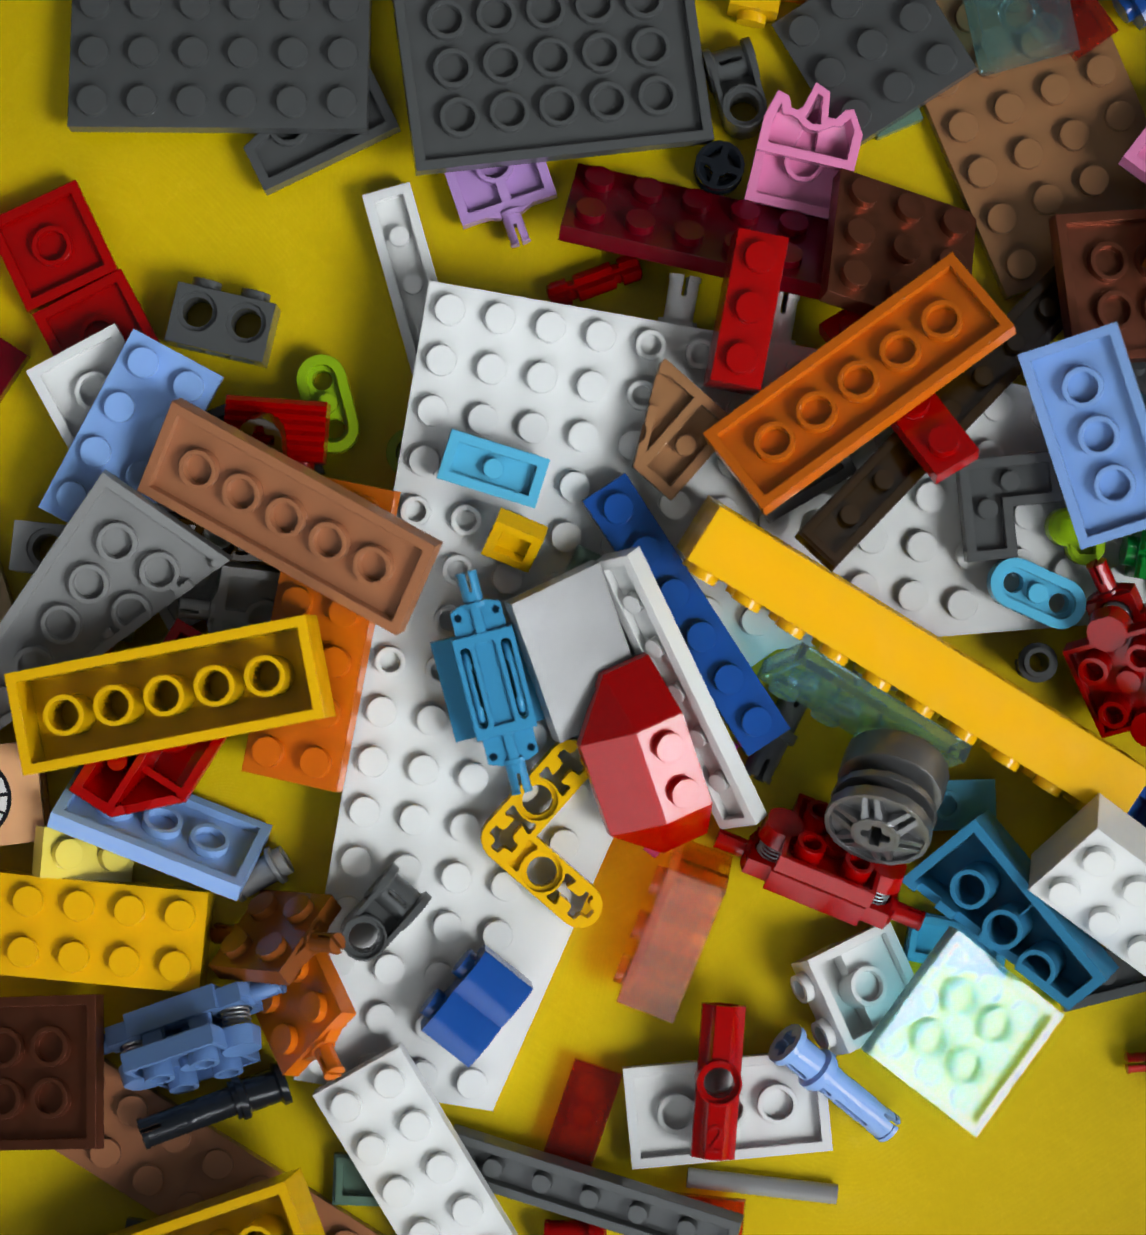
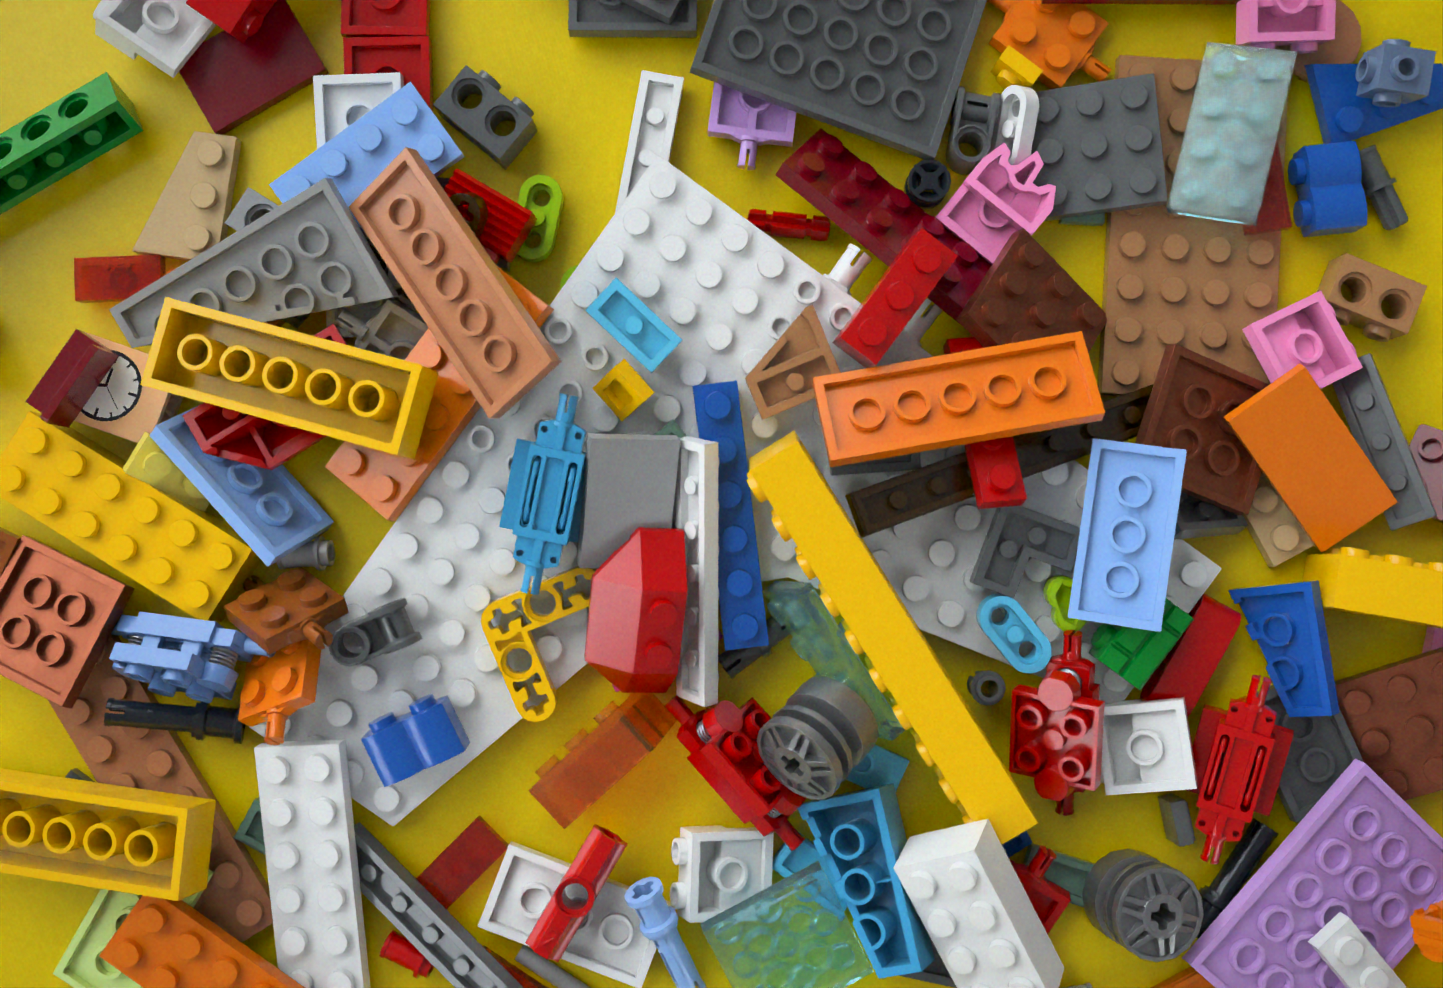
camera: 20 degrees right, 0 degrees up
(780, 61) = (1016, 122): none -> white plate

